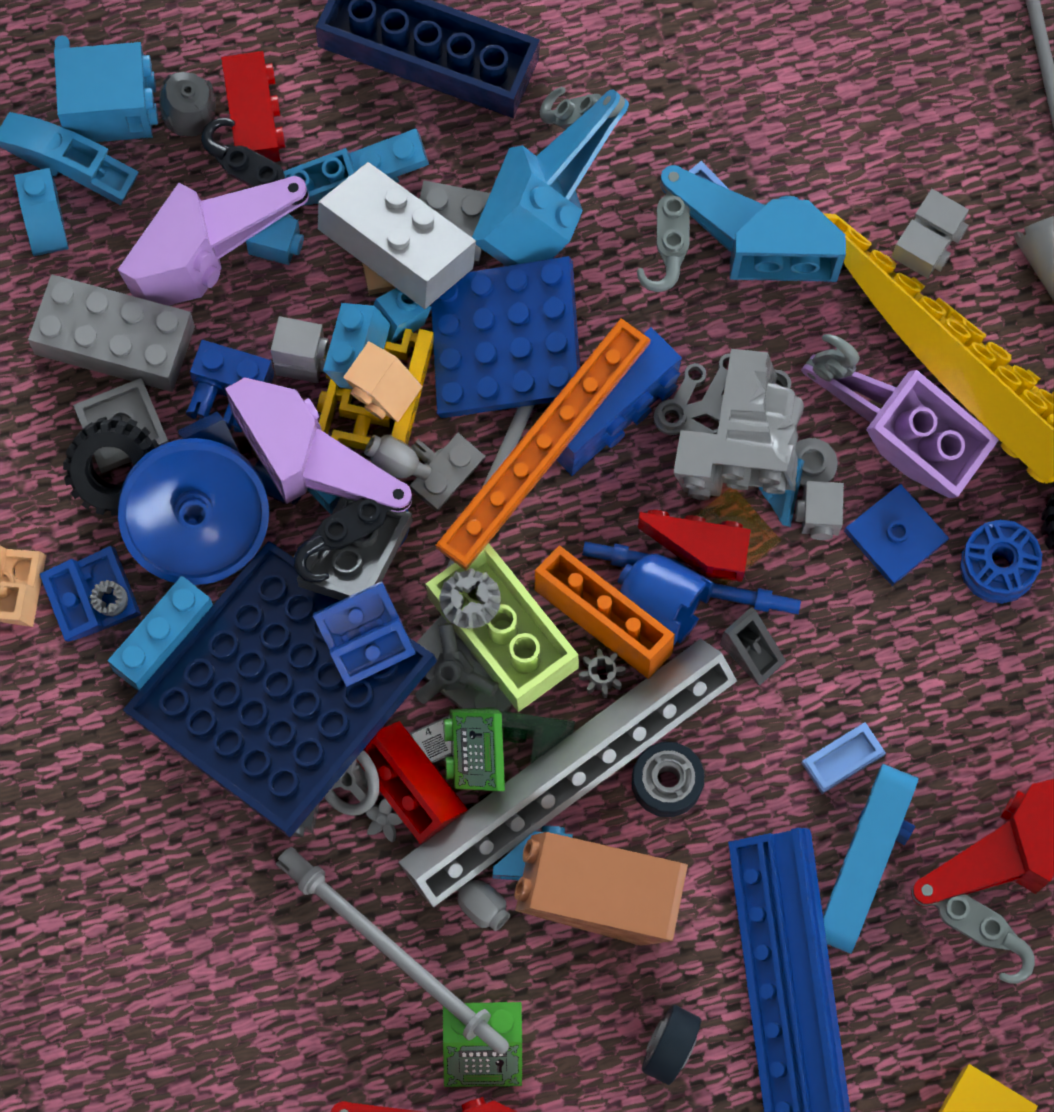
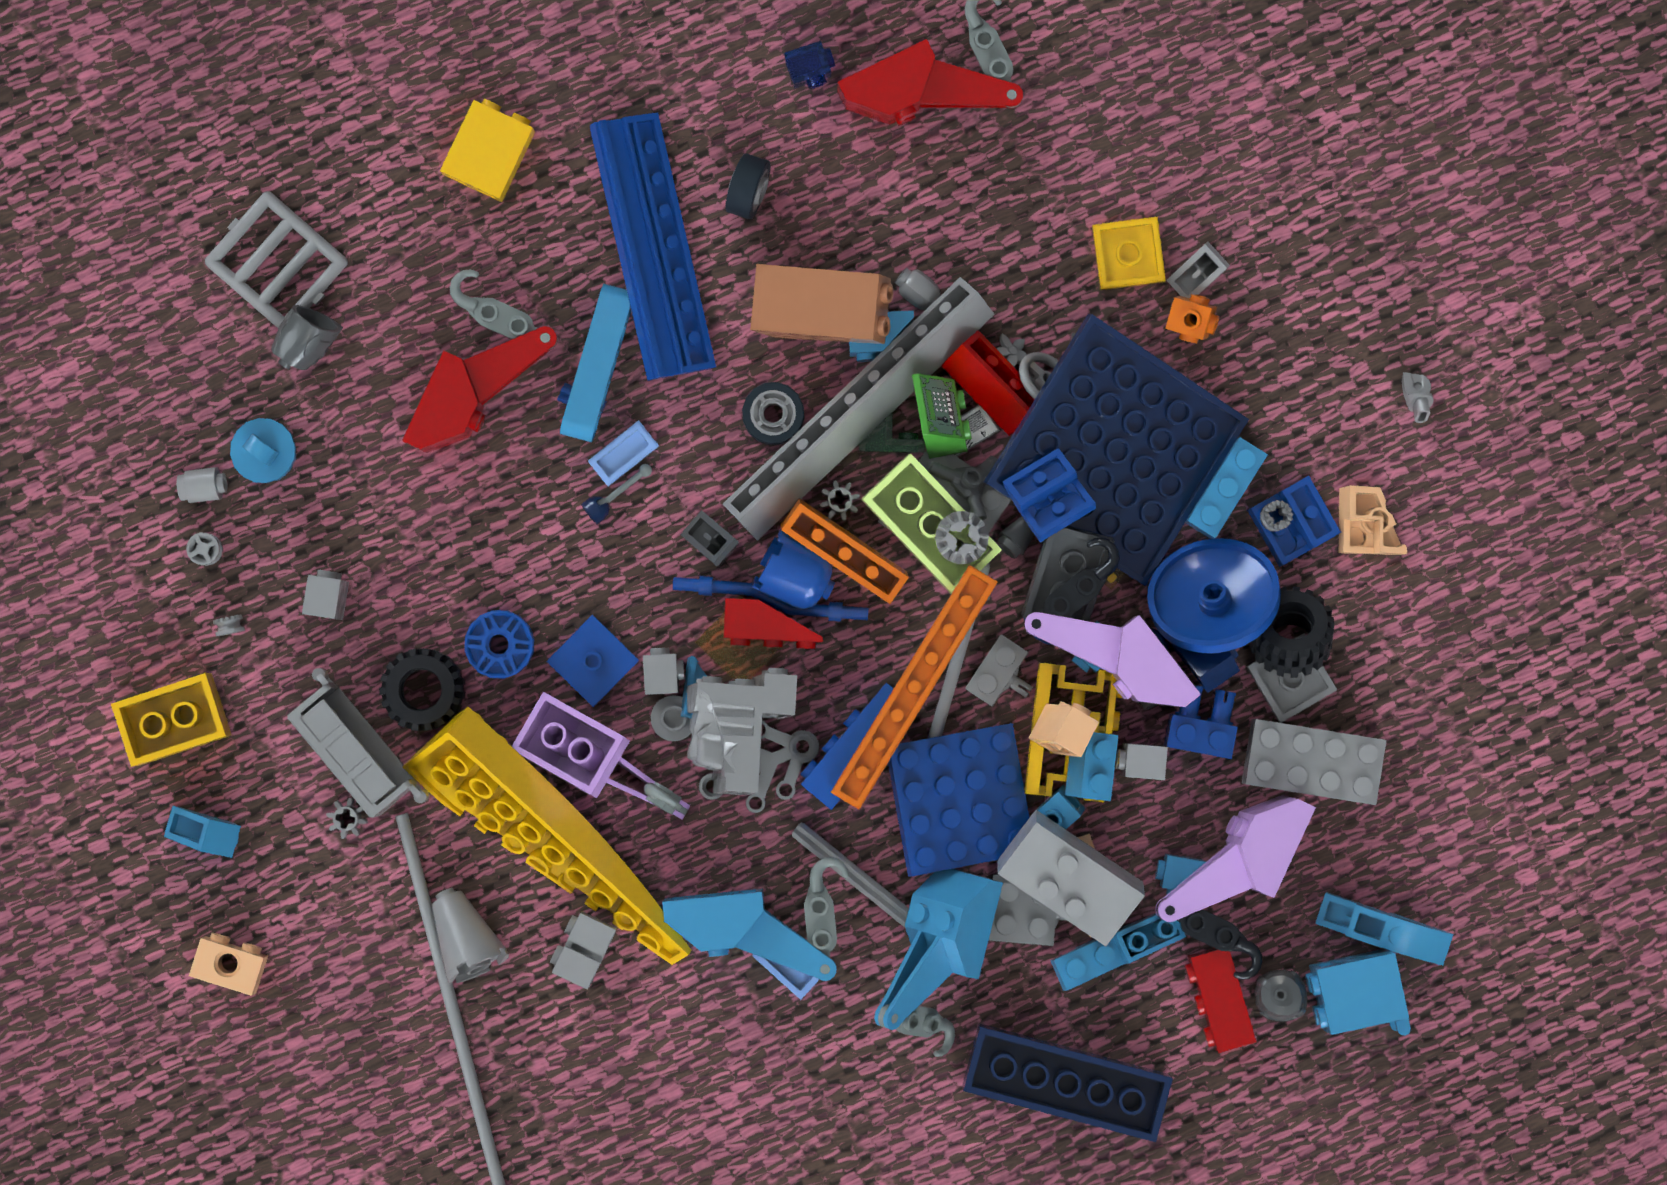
camera: 175 degrees right, 15 degrees up
(41, 211) = (1396, 872): dark azure slope -> none
(154, 883) = (1198, 271): none -> light grey slope
(168, 829) = (1181, 318): none -> orange brick
(231, 919) = (1128, 253): none -> yellow tile
(312, 881) = (1063, 289): light grey bar -> none
(395, 457) = (1043, 668): light grey plant -> none
(410, 607) = (1015, 538): none -> dark grey cone
(473, 1061) = (905, 172): slope -> none
(627, 277) = (857, 877): none -> light grey axle
(877, 699) = (598, 507): none -> hinge

